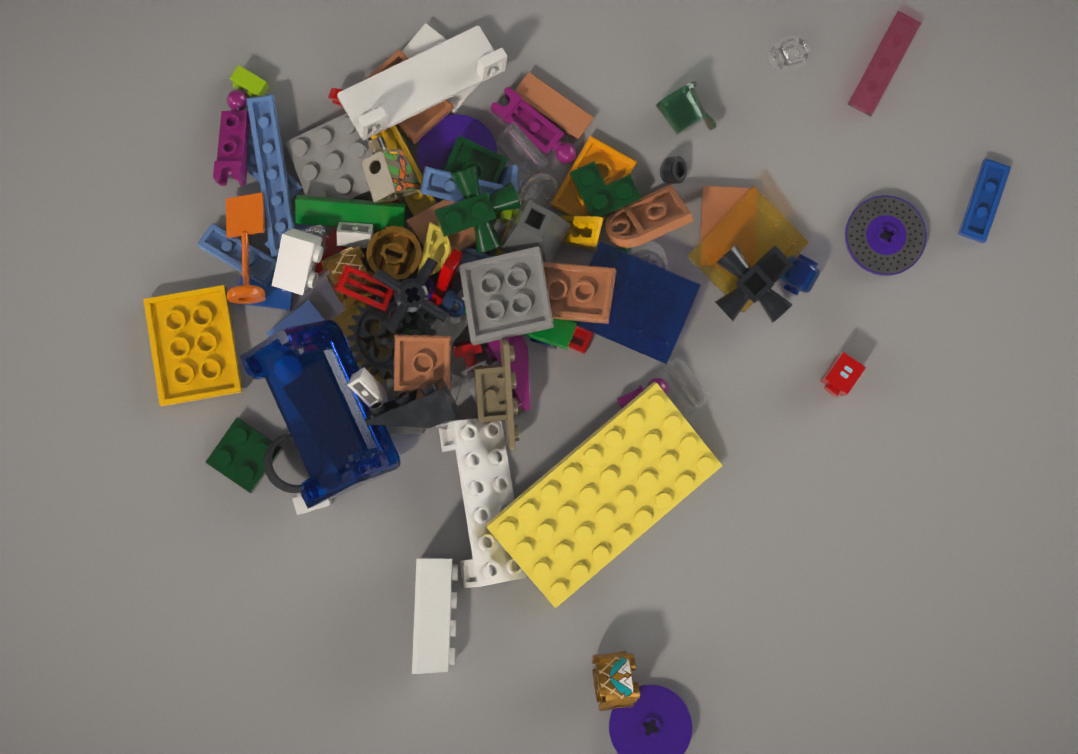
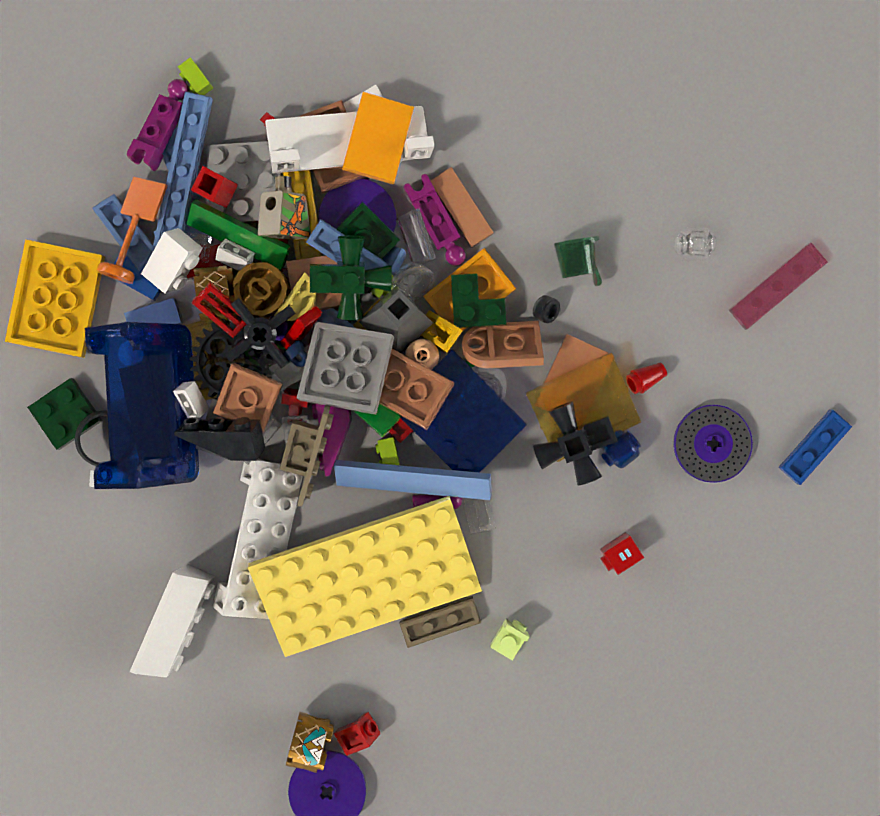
camera: 25 degrees right, 5 degrees up
(312, 174) = (214, 187): none -> red brick
(449, 70) = (378, 138): none -> light orange tile
(574, 251) = (427, 346): none -> light nougat head
(578, 368) = (388, 451): none -> lime piece
(612, 380) = (413, 479): none -> medium blue tile
(658, 657) = (357, 734): none -> red bracket
(694, 513) = (440, 622): none -> dark tan tile
(769, 501) = (510, 638): none -> yellowish green bracket
(794, 198) = (644, 378): none -> red cone

